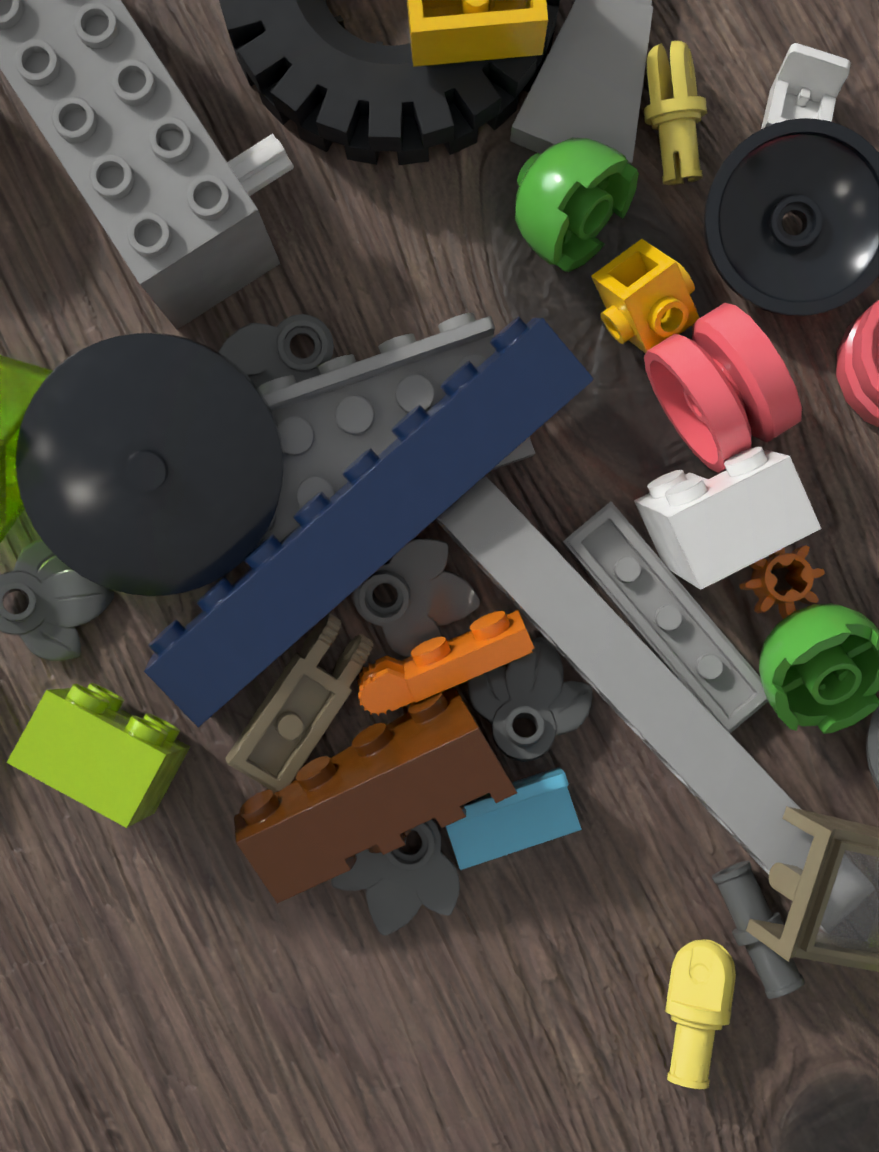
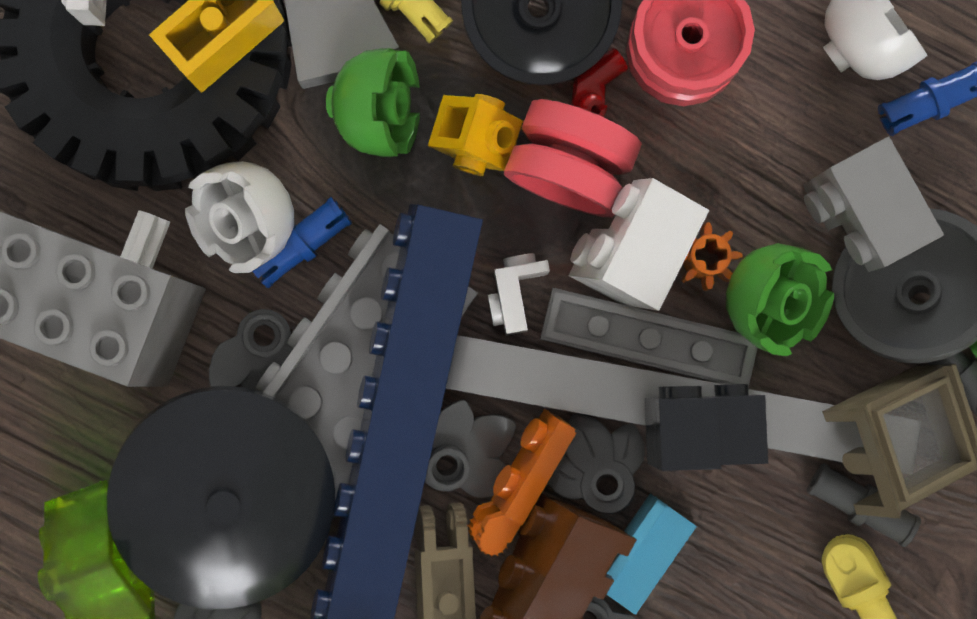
camera: 40 degrees left, 0 degrees up
(364, 211) = (240, 214): none -> white cylinder
(400, 282) = (305, 240): none -> blue pin
(555, 484) = (507, 304): none -> white bracket
(663, 735) = (705, 431): none -> black brick
(792, 333) = (590, 87): none -> red arm

